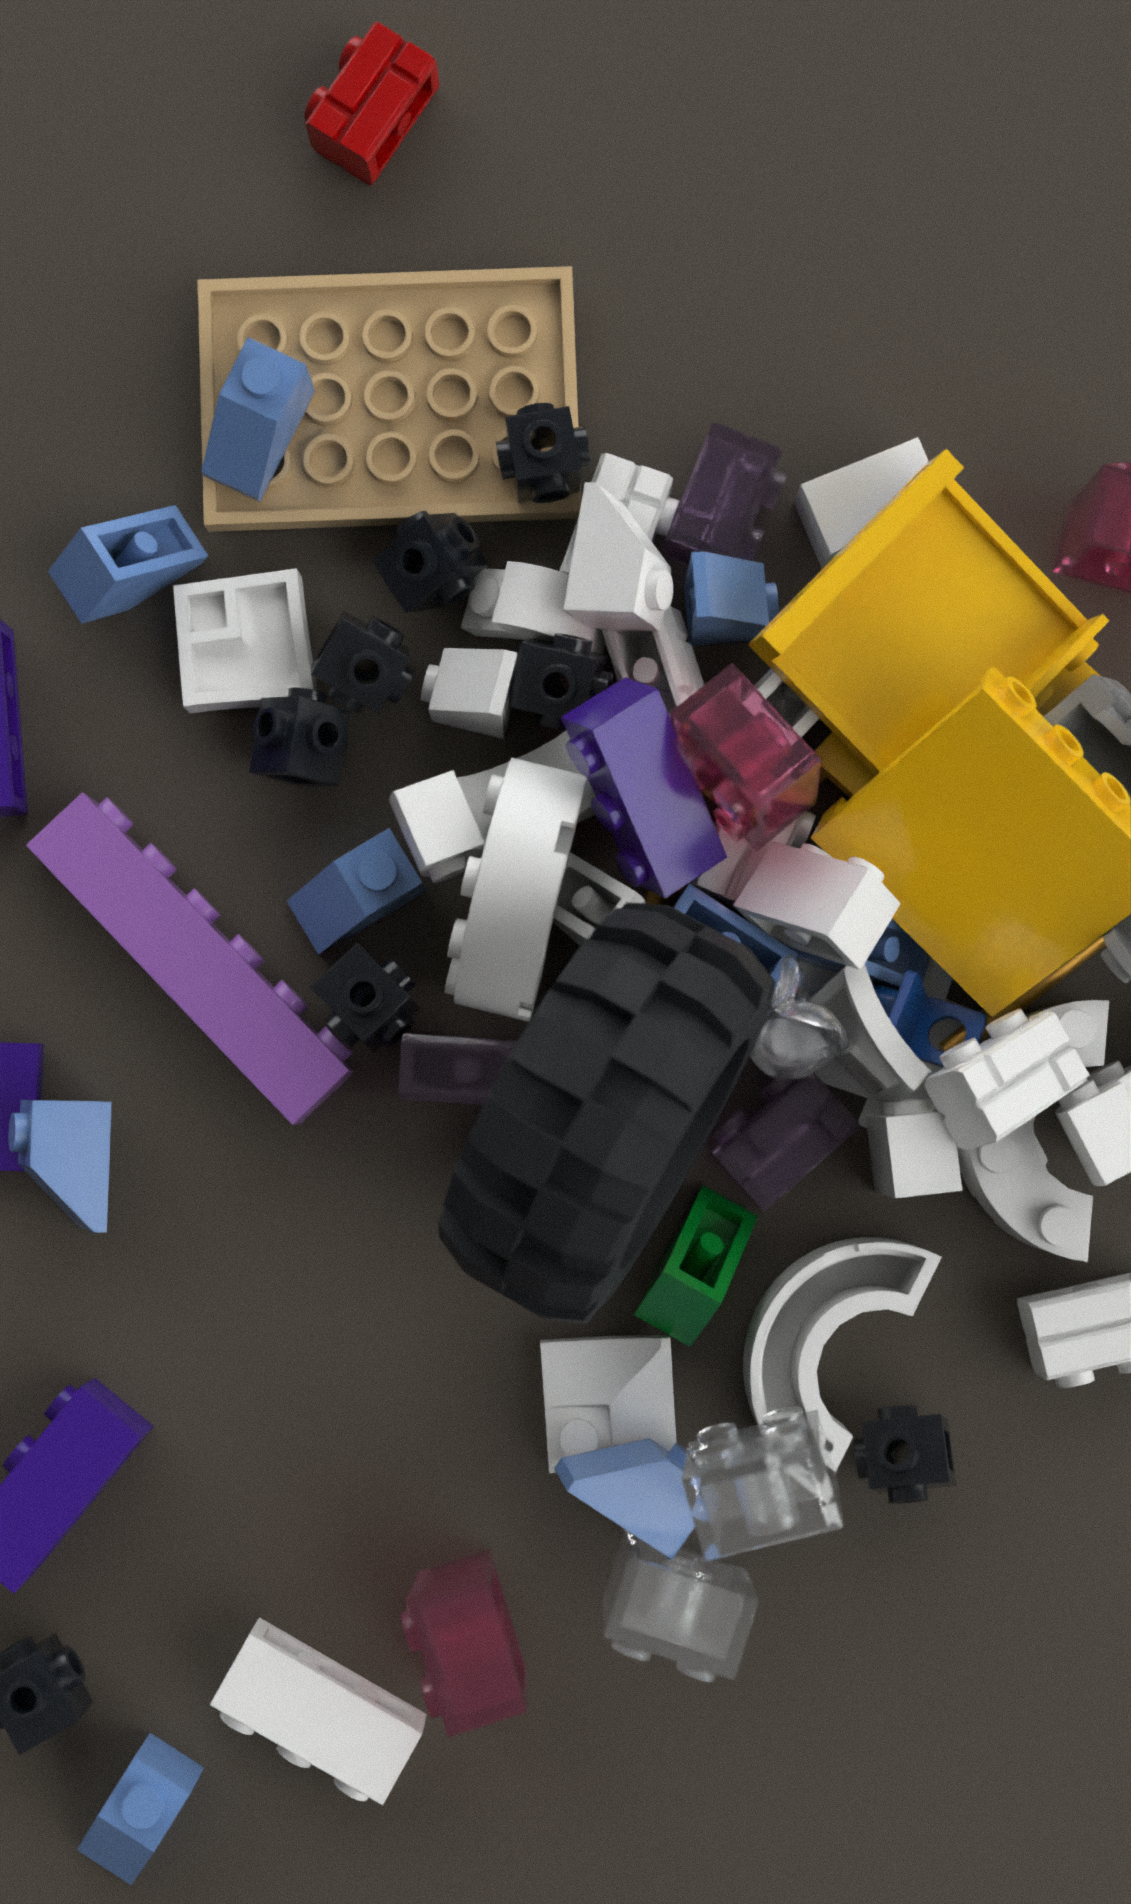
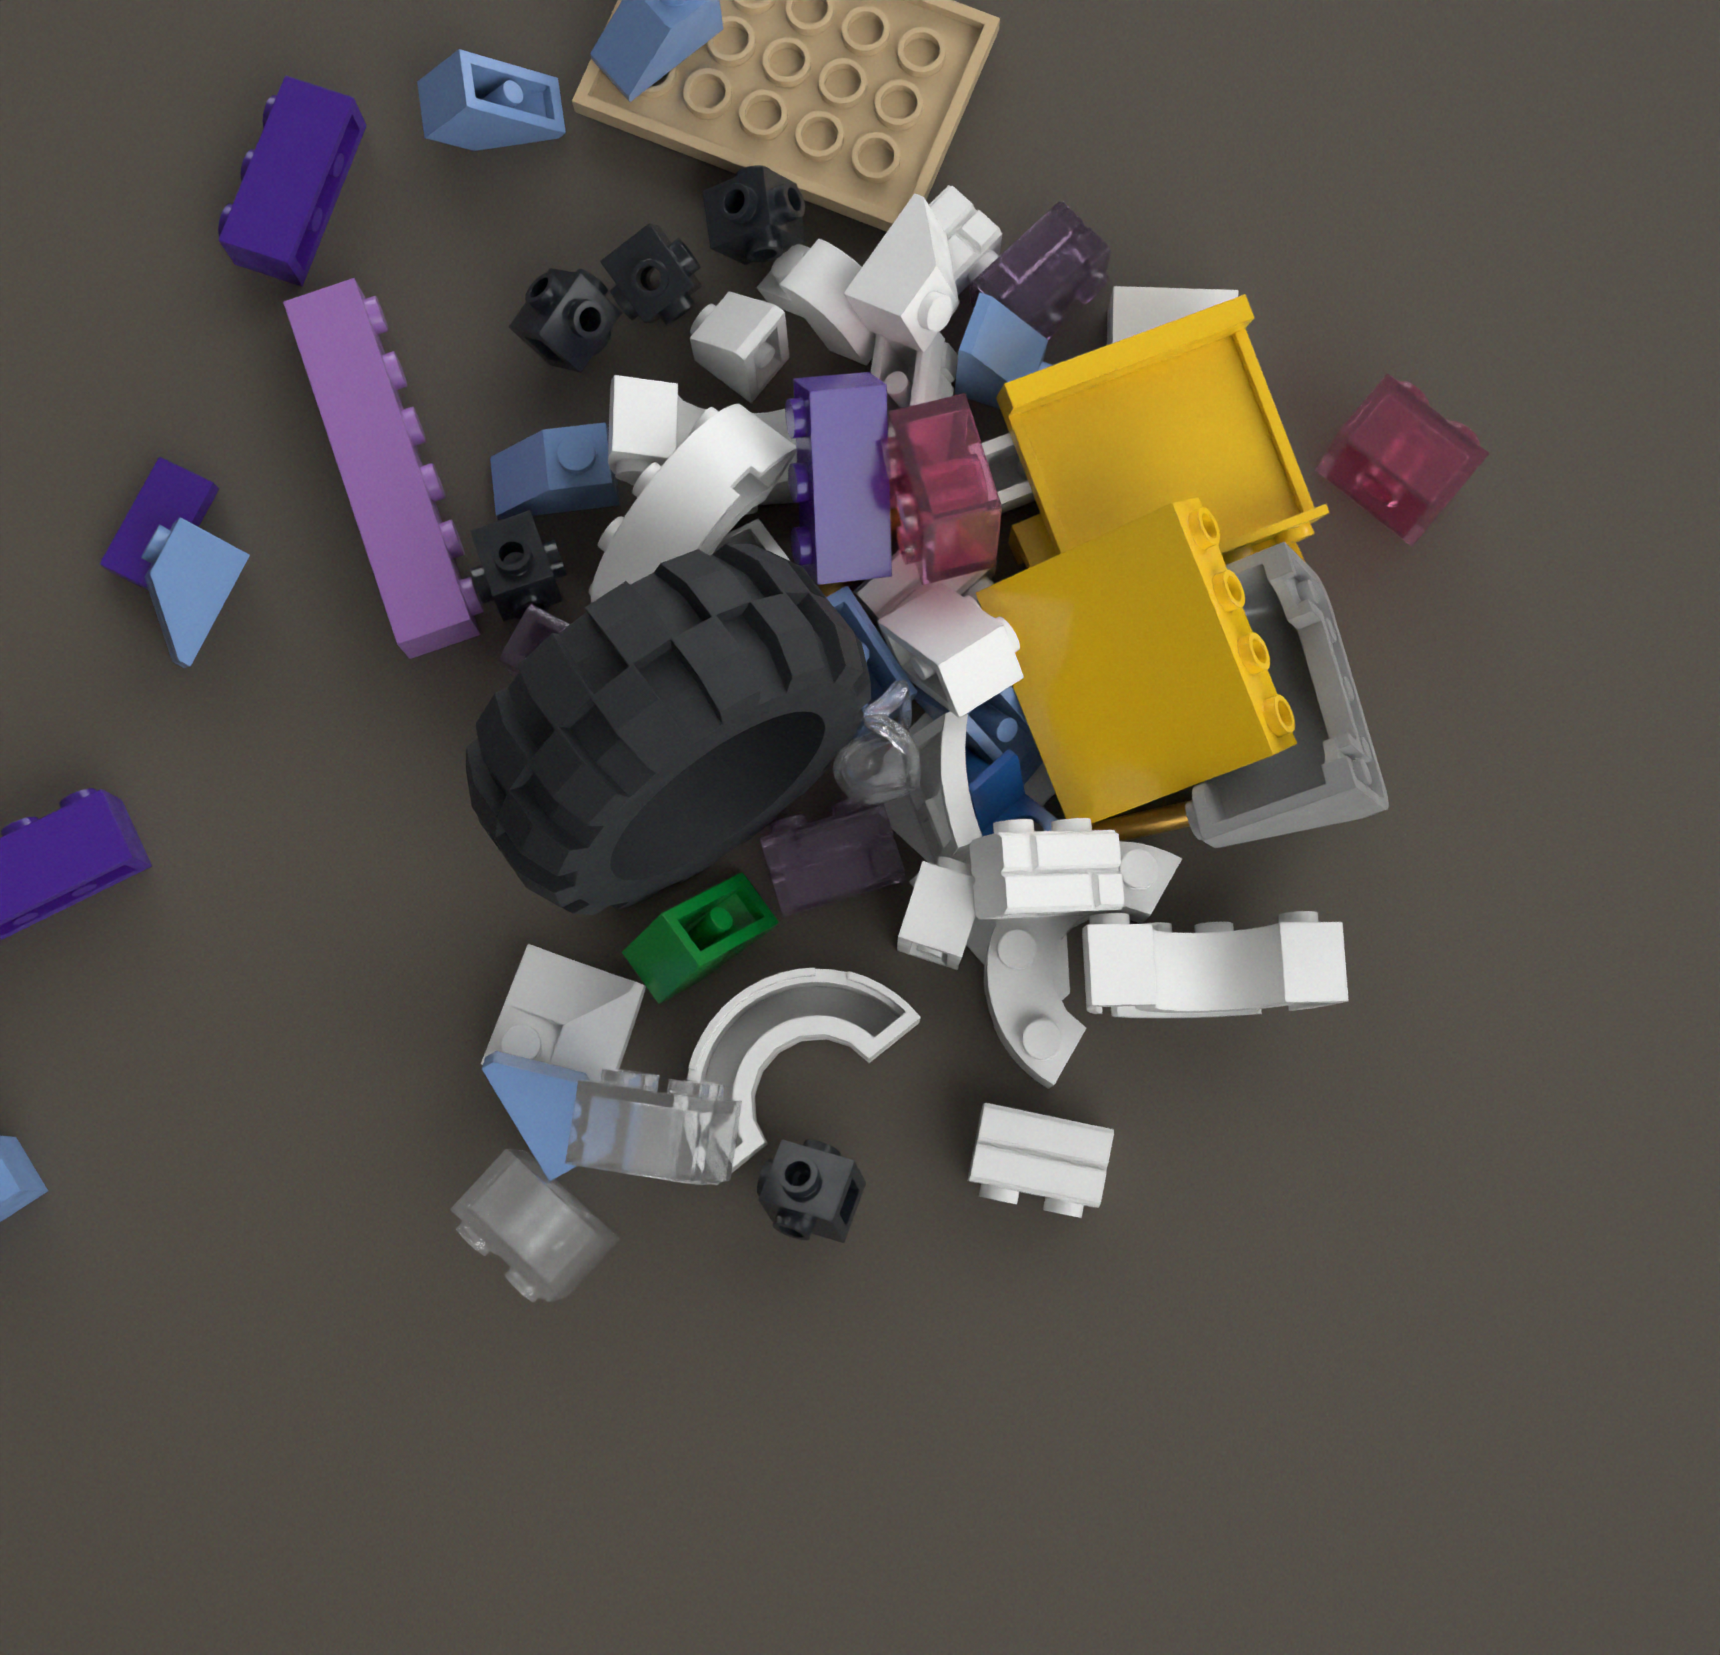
camera: 30 degrees right, 5 degrees down
(242, 640) = (558, 213): white plate -> none
(319, 1713) = (170, 1181): white brick -> none
(467, 1644) = (330, 1172): clear pink brick -> none
(538, 673) = (812, 349): black brick -> none
(547, 474) = (893, 158): black brick -> none

